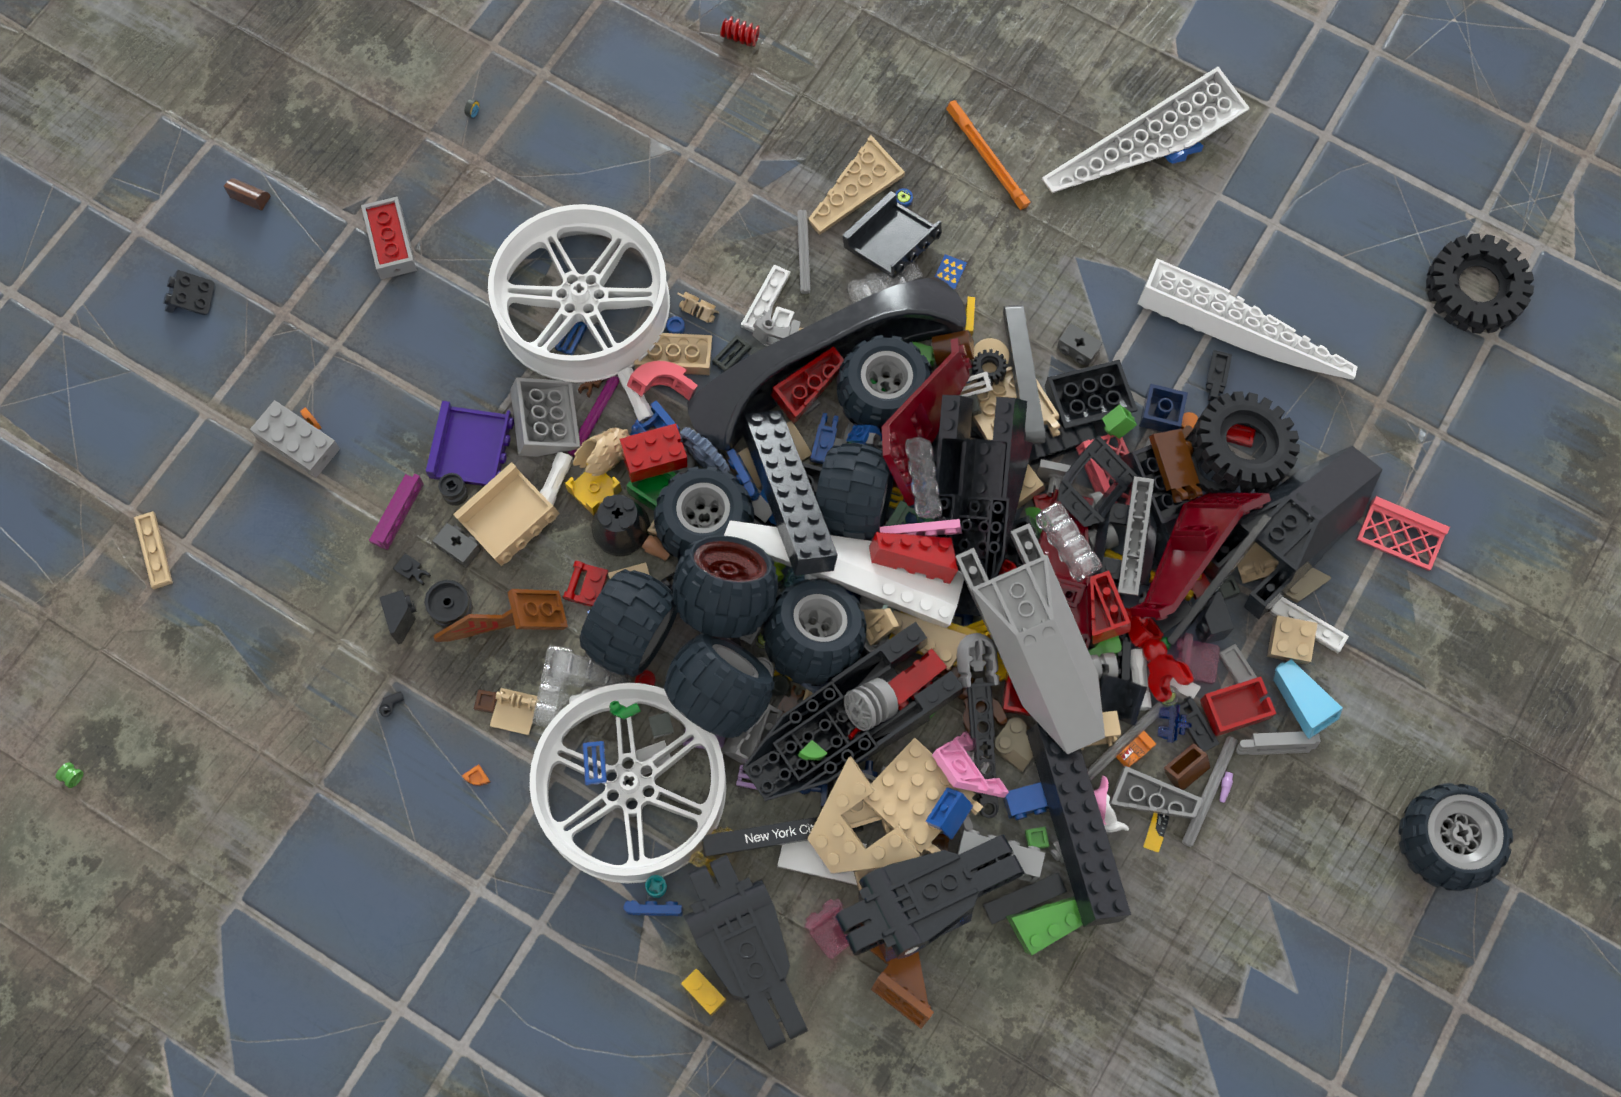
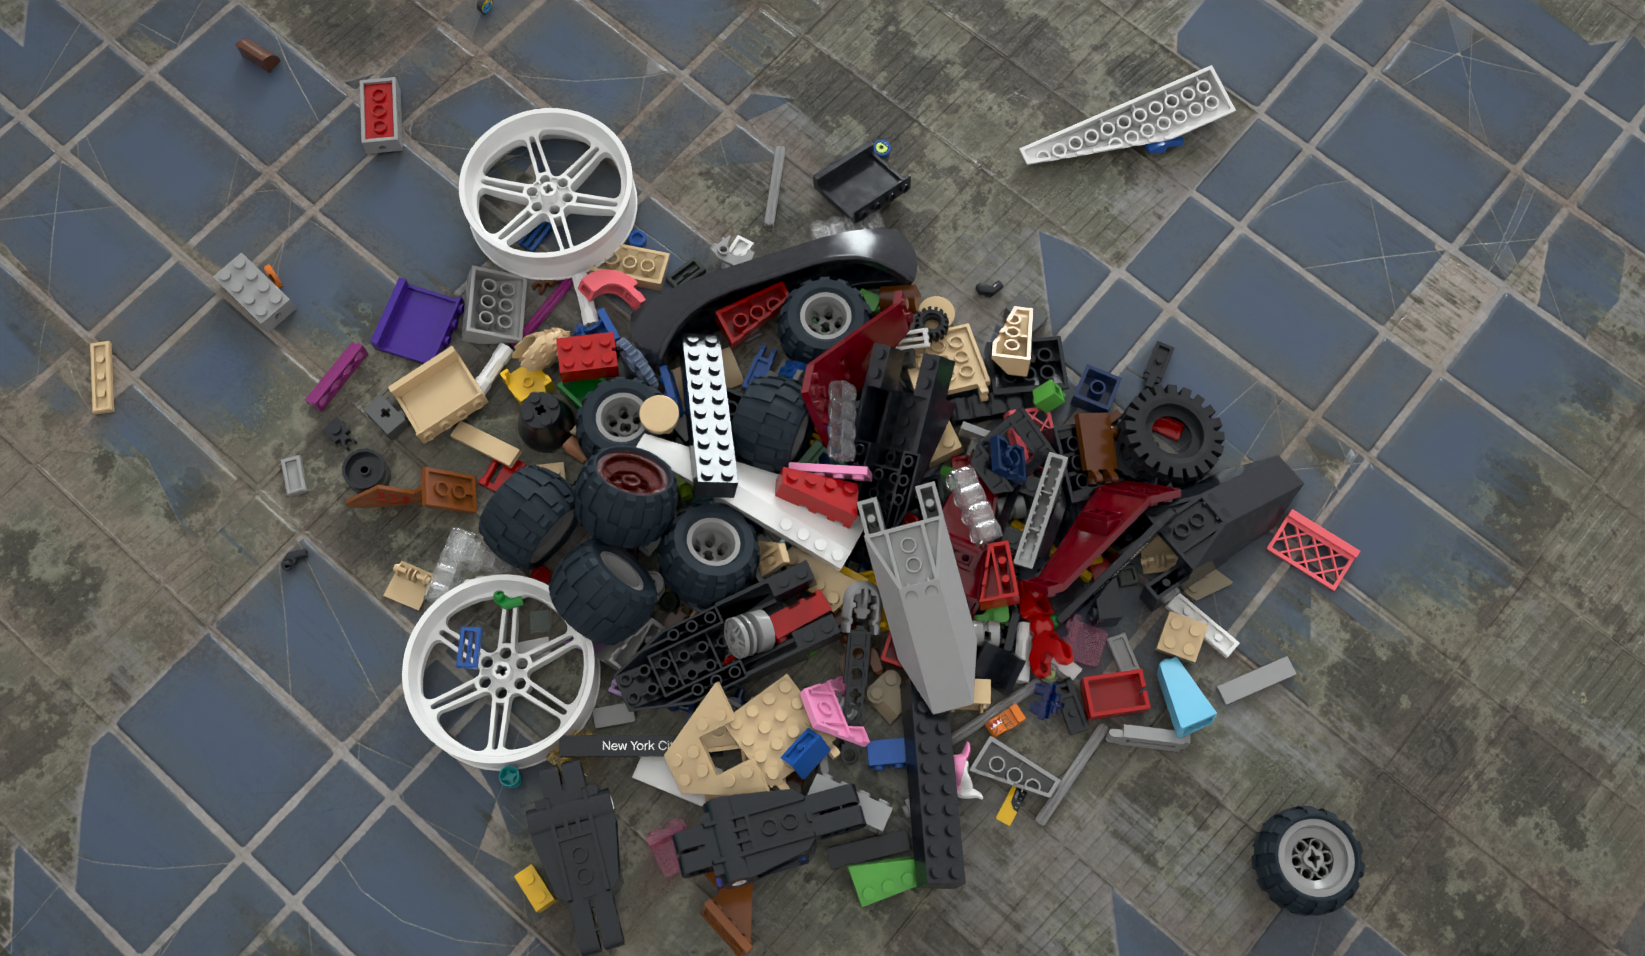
camera: 10 degrees right, 0 degrees up
(188, 293) = (184, 140): black bracket -> none
(373, 619) = (294, 475): none -> light grey tile
(399, 614) = (316, 475): black slope -> none
(453, 489) = (393, 363): black wheel -> none
(476, 776) = (361, 642): orange tile -> none
(485, 701) = (383, 571): reddish brown tile -> none
(564, 556) = (486, 444): none -> tan tile
(651, 908) = (502, 798): blue hinge -> none
(691, 306) = (659, 223): tan hinge -> none
(741, 499) = (659, 414): none -> tan tile
(746, 808) = (612, 716): none -> light grey tile
(766, 296) = (731, 223): white tile -> none
(812, 751) = (684, 671): bright green tile -> none
(861, 181) = (842, 127): tan wing -> none
(950, 270) = (913, 226): blue sticker -> none
(967, 127) = (971, 119): orange piece -> none
(970, 307) = (923, 272): yellow tile -> none
(1024, 371) = (964, 336): beam -> none
(1037, 837) = (891, 792): bright green tile -> none
(1038, 324) = (988, 290): none -> black arm
(1076, 373) = (1013, 345): none -> tan wedge
(1094, 491) = (1008, 460): none -> dark blue brick
(1187, 767) = (1053, 746): reddish brown brick -> none
(1189, 419) = (1119, 404): orange tile -> none
(1217, 313) = (1173, 309): white wedge -> none
(1226, 786) = (1090, 769): lavender piece -> none
(1371, 670) = (1255, 680): none -> light grey tile
(1511, 275) = (1435, 283): black tyre -> none

